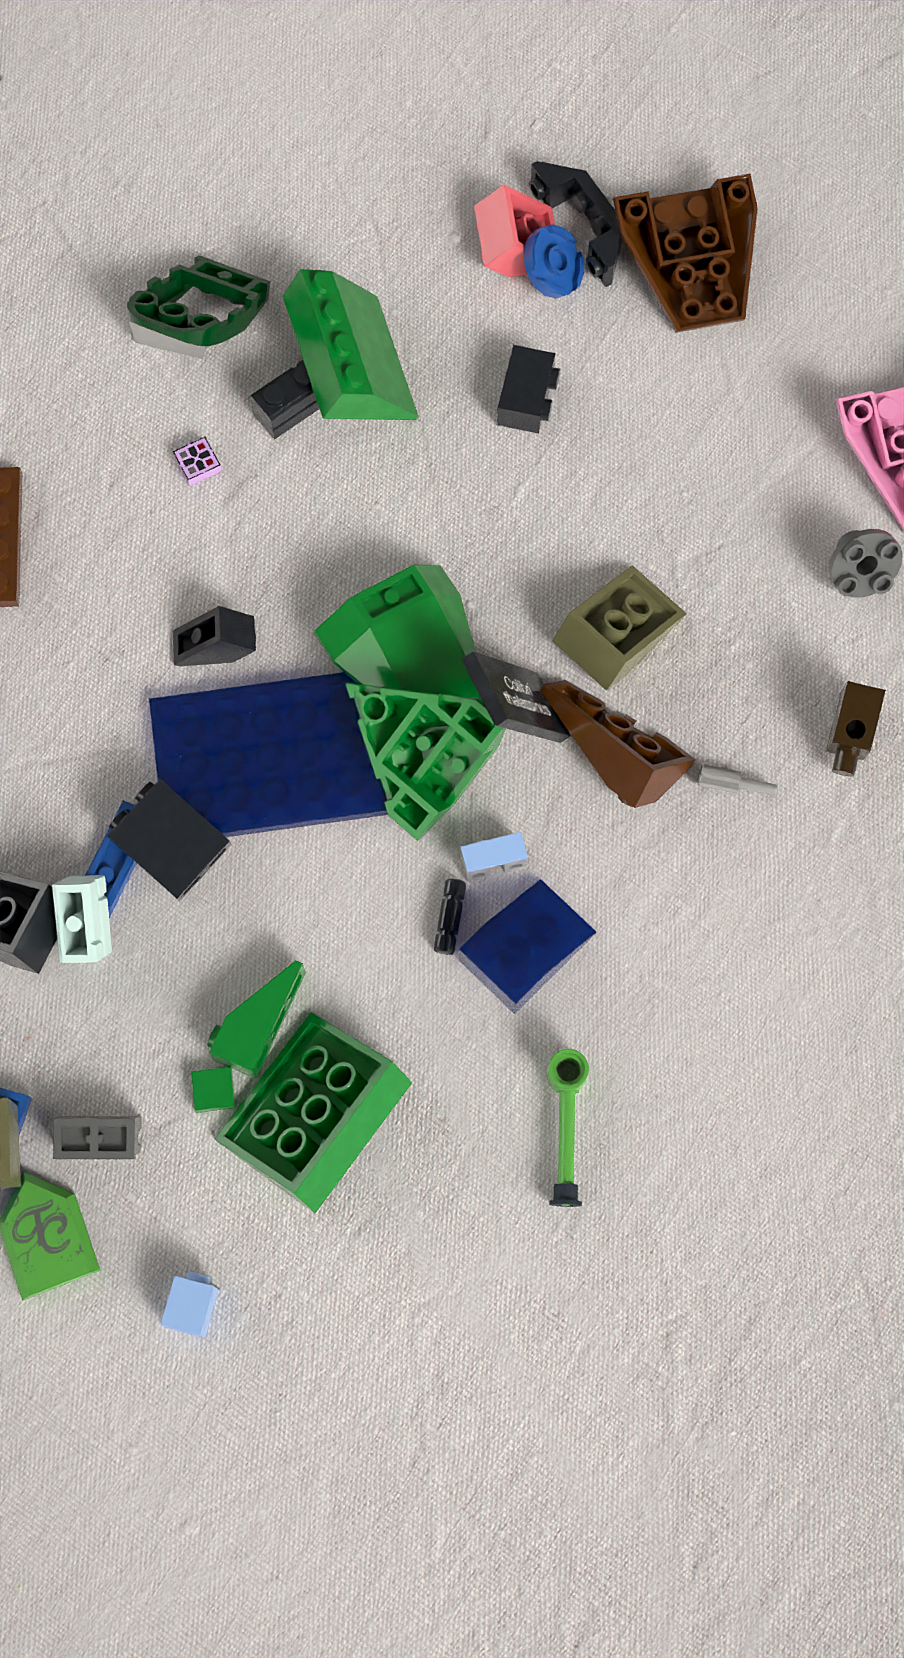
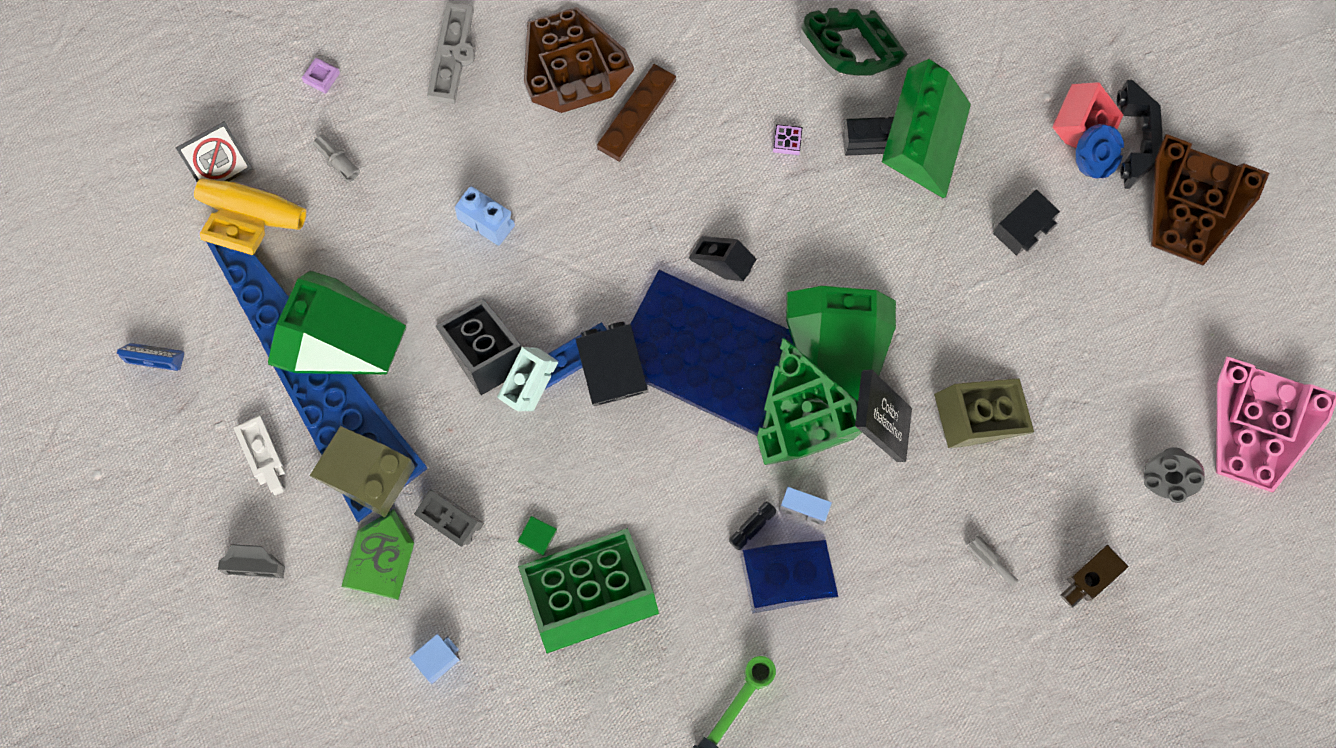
camera: 30 degrees right, 0 degrees up
(253, 1026) = (586, 513): green slope -> none
(625, 758) = (930, 496): reddish brown wedge -> none

